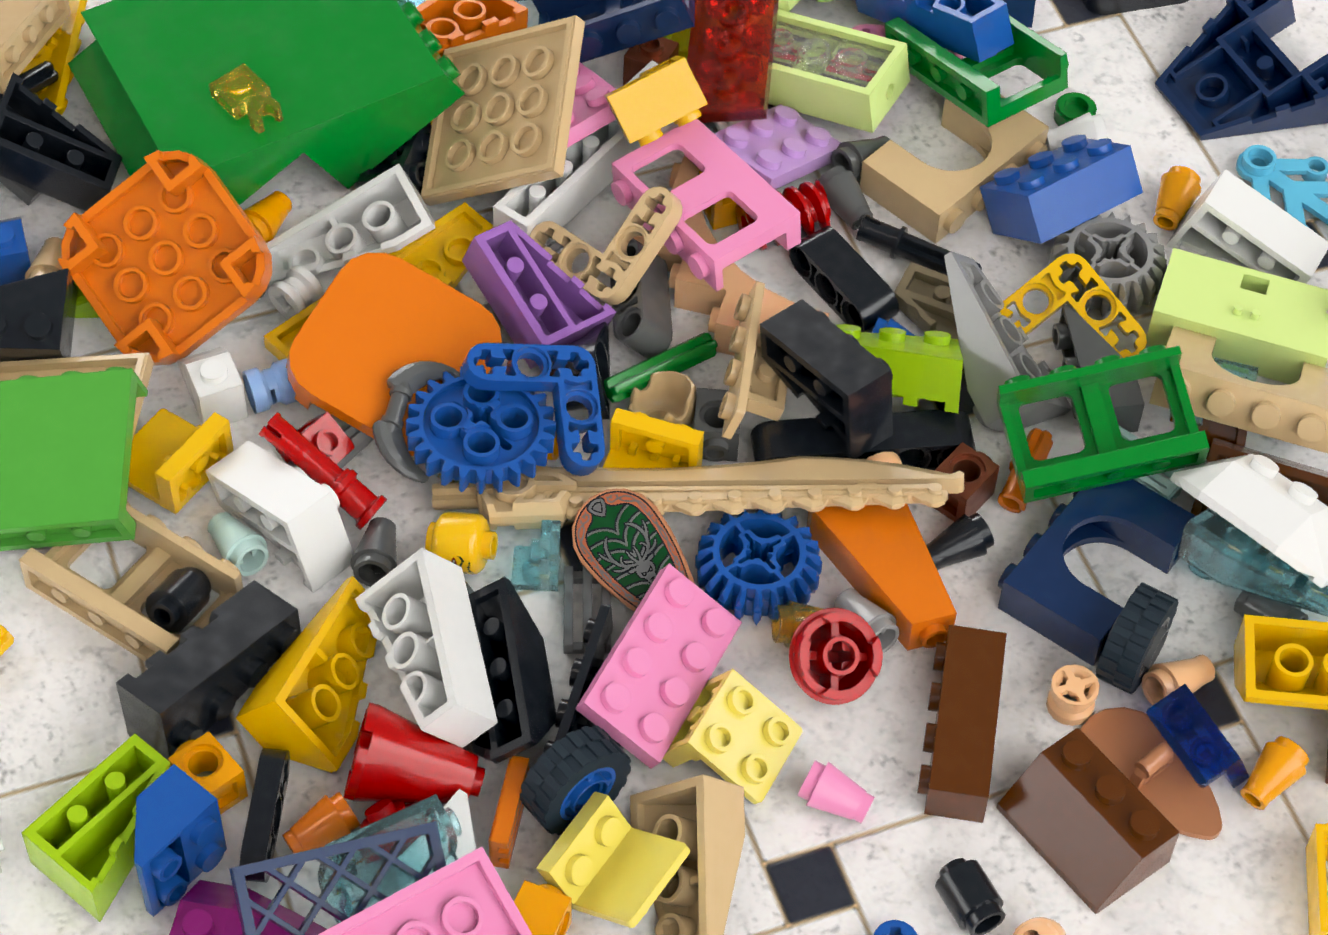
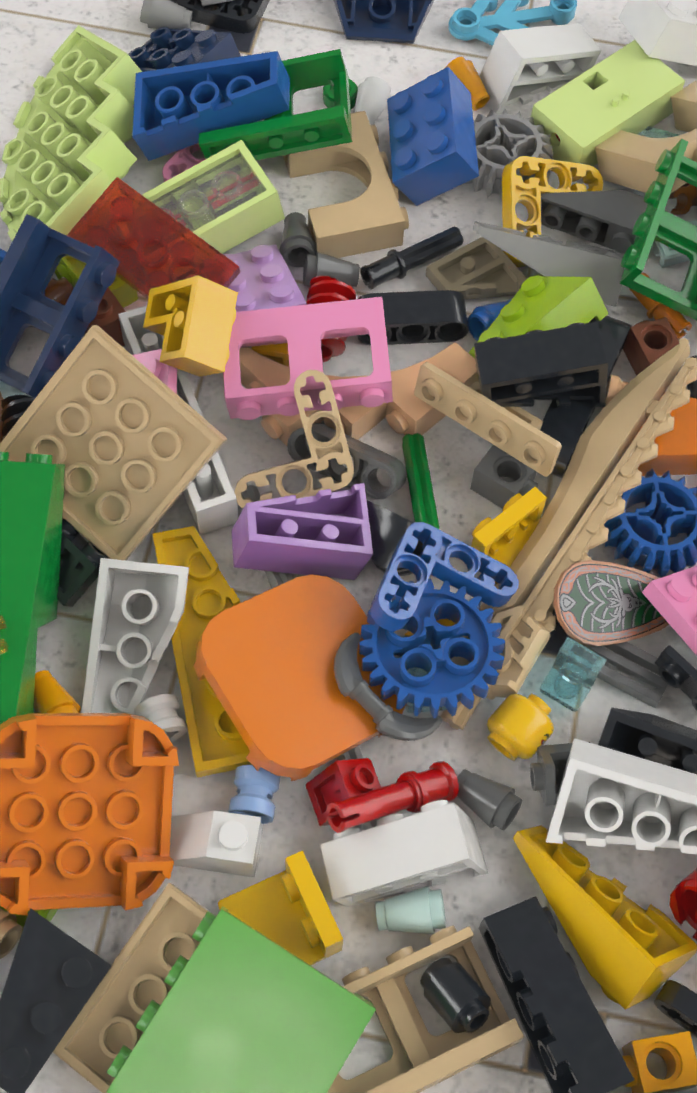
camera: 60 degrees left, 10 degrees up
(666, 397) = (464, 500): tan hair -> none

